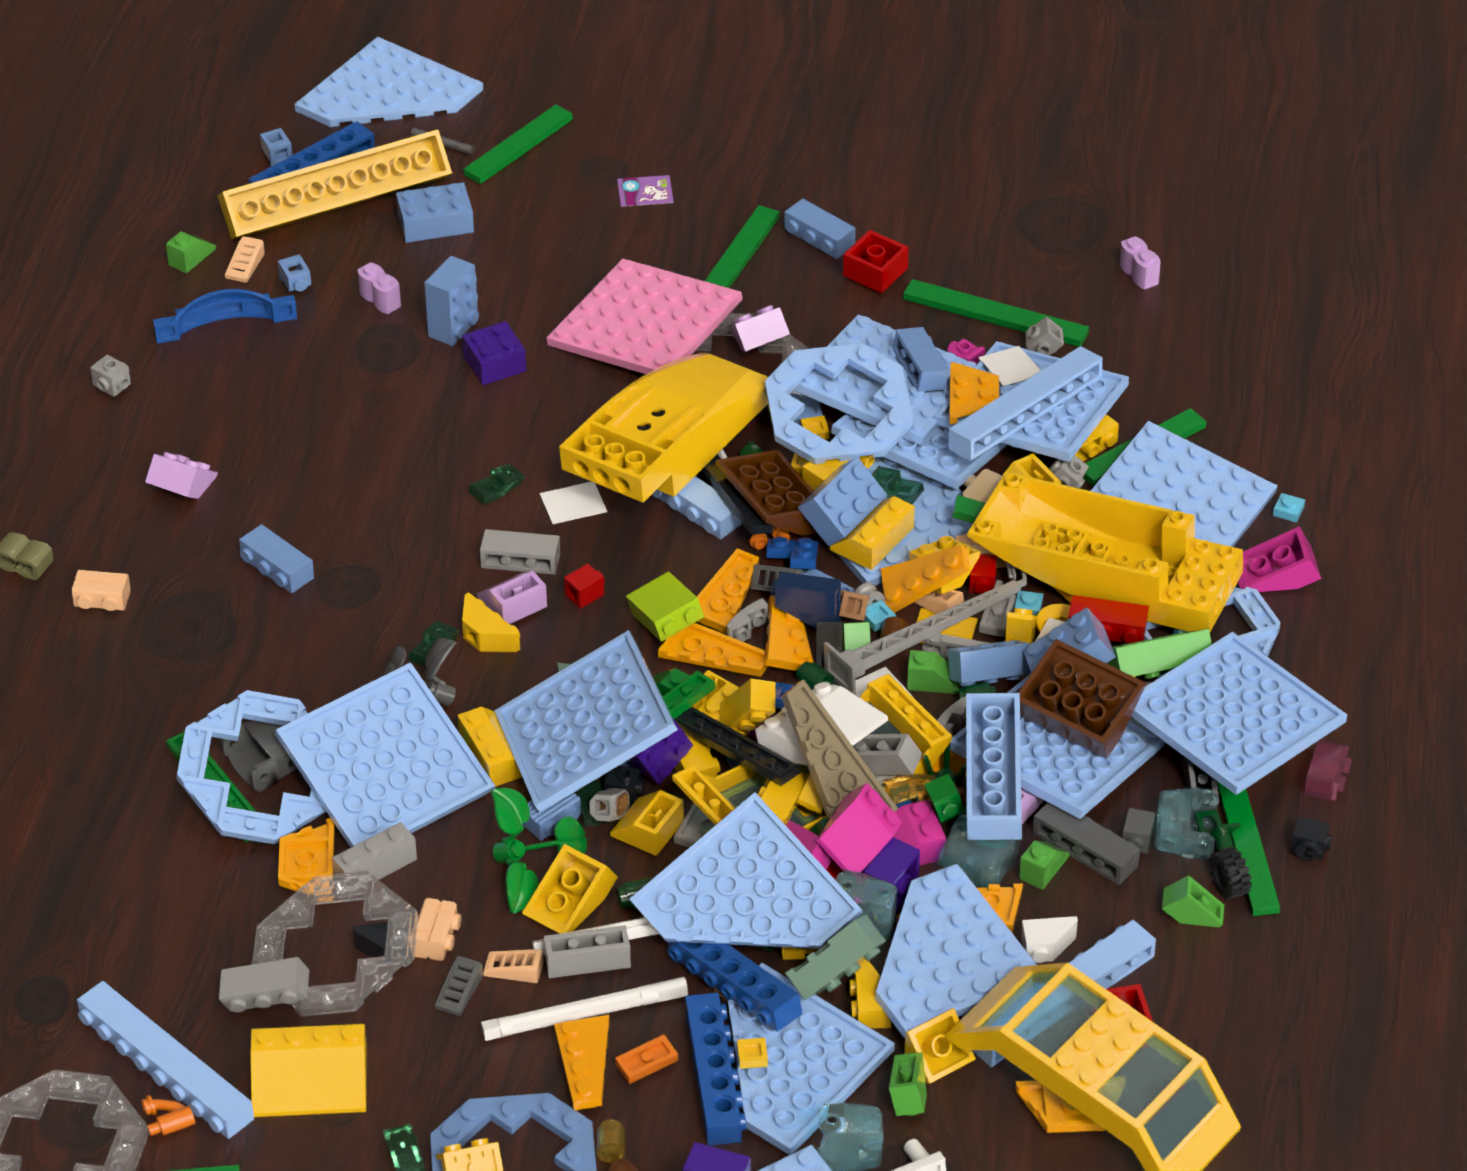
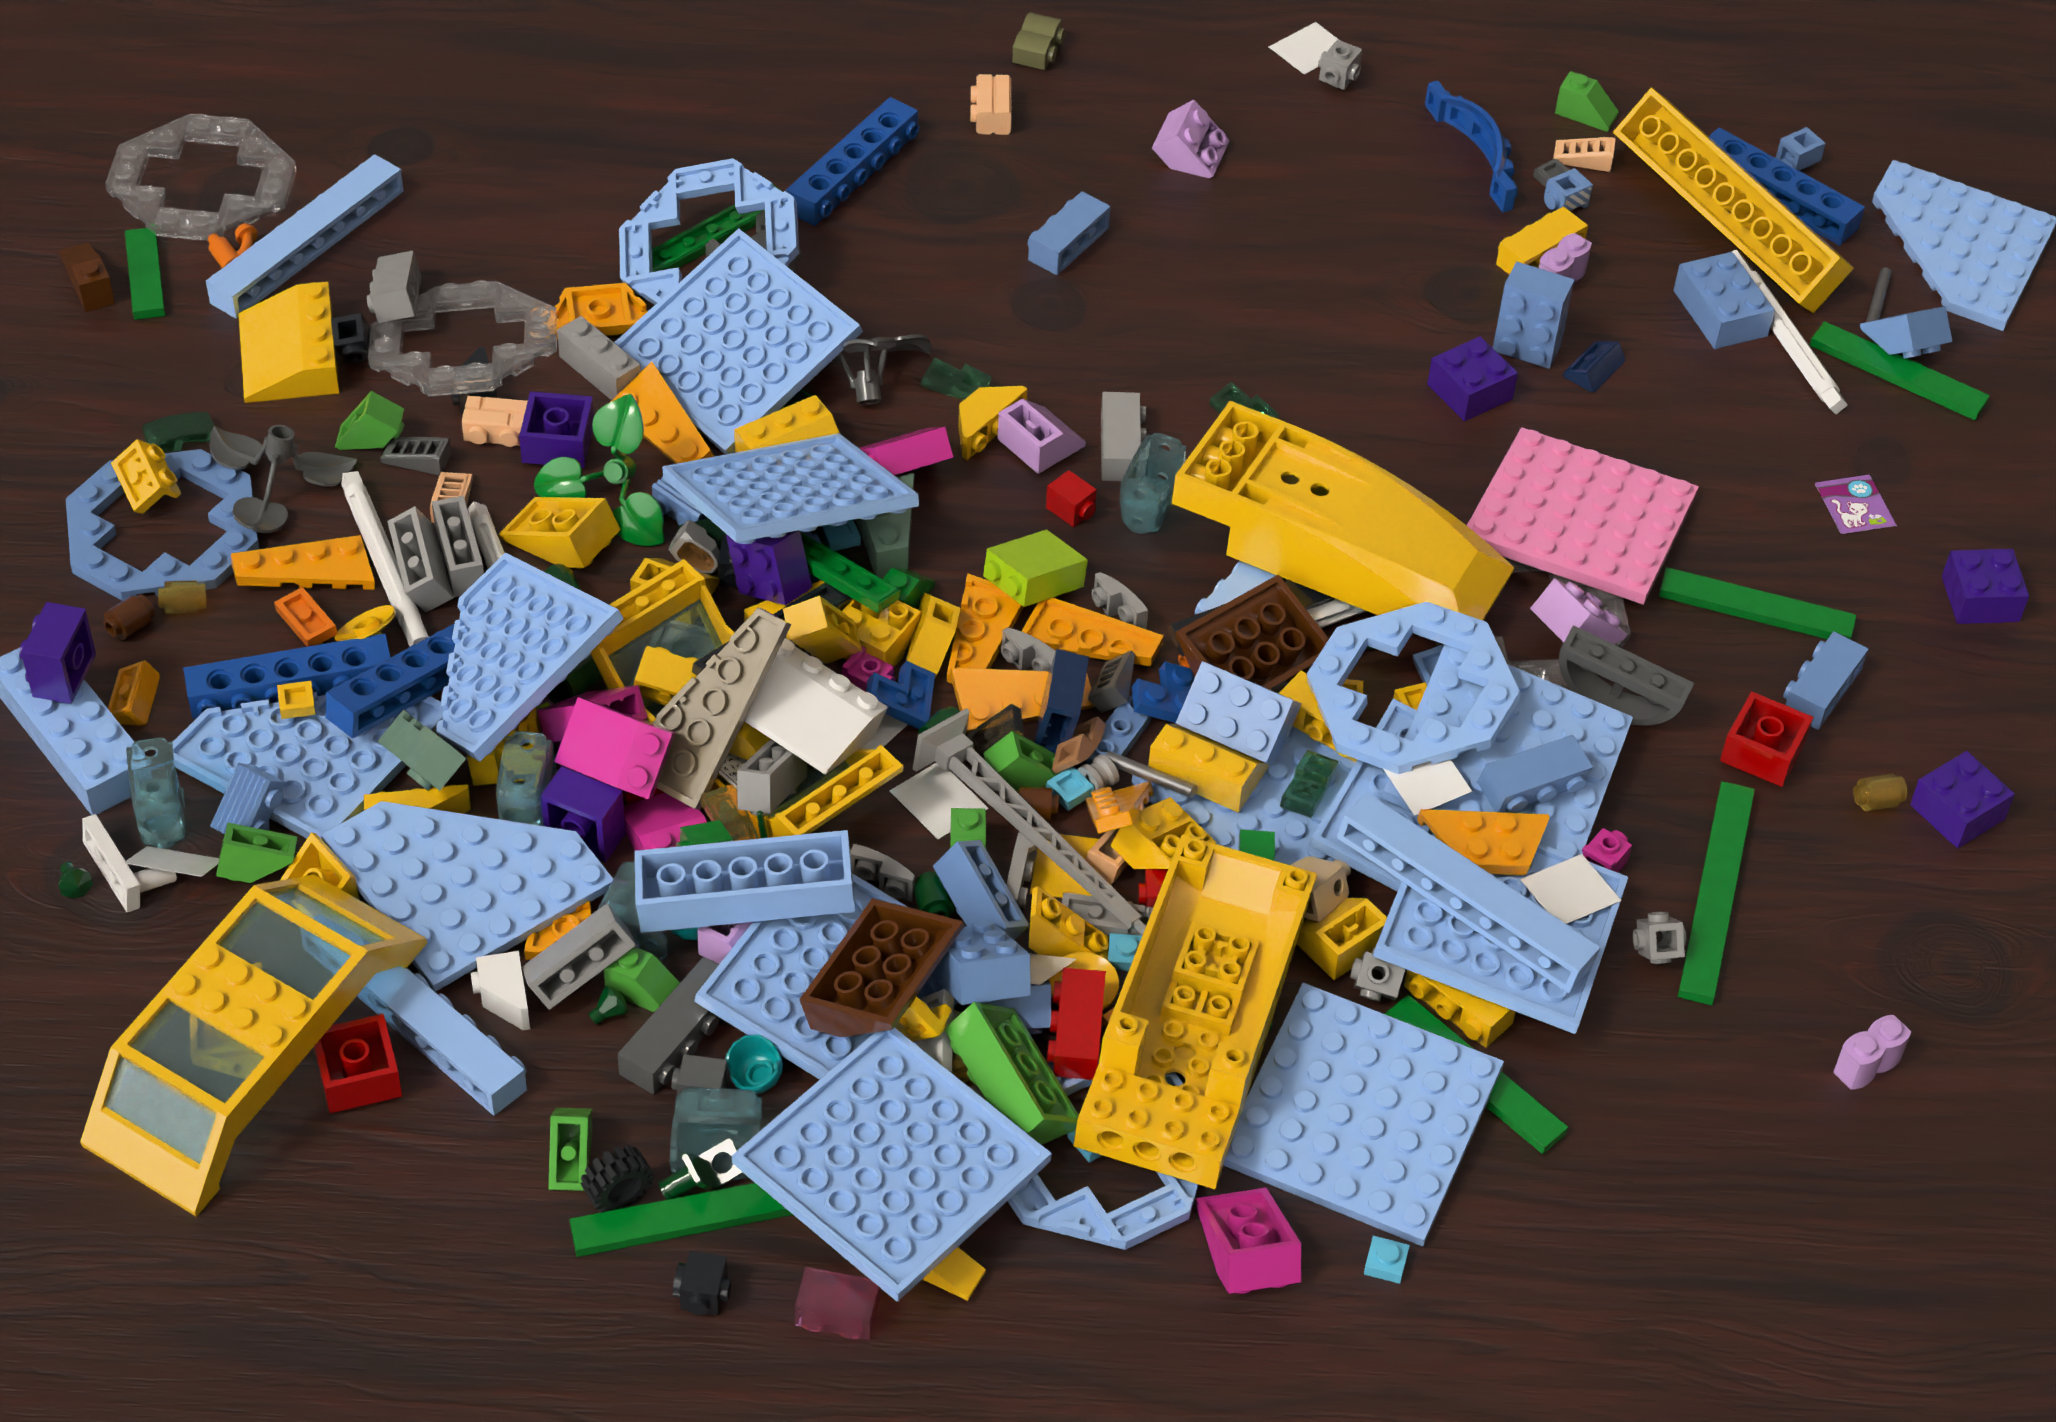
camera: 80 degrees right, 5 degrees up
(67, 399) = (1305, 47): none -> white sticker
(149, 680) = (854, 160): none -> blue brick
(264, 282) = (1549, 171): none -> dark grey tile
(319, 1013) = (351, 337): none -> black brick
(350, 297) = (1538, 238): none -> yellow brick
(429, 1012) = (371, 424): none -> bright green slope
(448, 824) = (664, 418): none -> light orange wing
(461, 880) = (556, 427): none -> dark purple brick
(468, 1052) = (238, 450): none -> dark grey plant
(488, 296) = (1595, 365): none -> dark blue slope
(489, 126) = (1911, 332): none -> medium blue slope
(494, 186) = (1798, 348): none -> white piece
(528, 662) = (911, 450): none -> dark pink brick
(588, 535) = (1143, 494): none -> clear light blue piece
(598, 976) = (420, 559): none -> light grey brick
(655, 1011) = (367, 624): none -> yellow dish
(701, 566) = (1118, 599): none -> light grey slope
(719, 662) = (933, 633): none -> yellow slope
(744, 139) = (1985, 586): none -> dark purple brick
(825, 314) = (1587, 654): none -> dark grey window
(860, 1081) = (249, 799): none -> medium blue brick
(880, 563) = (1152, 775): none -> flat silver bar
(908, 1138) = (173, 861): none -> white sticker
(922, 222) = (1880, 792): none -> clear yellow brick
(926, 411) = (1429, 785): none -> white sticker
(934, 185) = (1962, 799): none -> dark purple brick
(1034, 879) = (578, 956): none -> light grey brick
(1063, 881) = (609, 1005): none -> dark green rock
(1125, 796) = (754, 1063): none -> teal hair

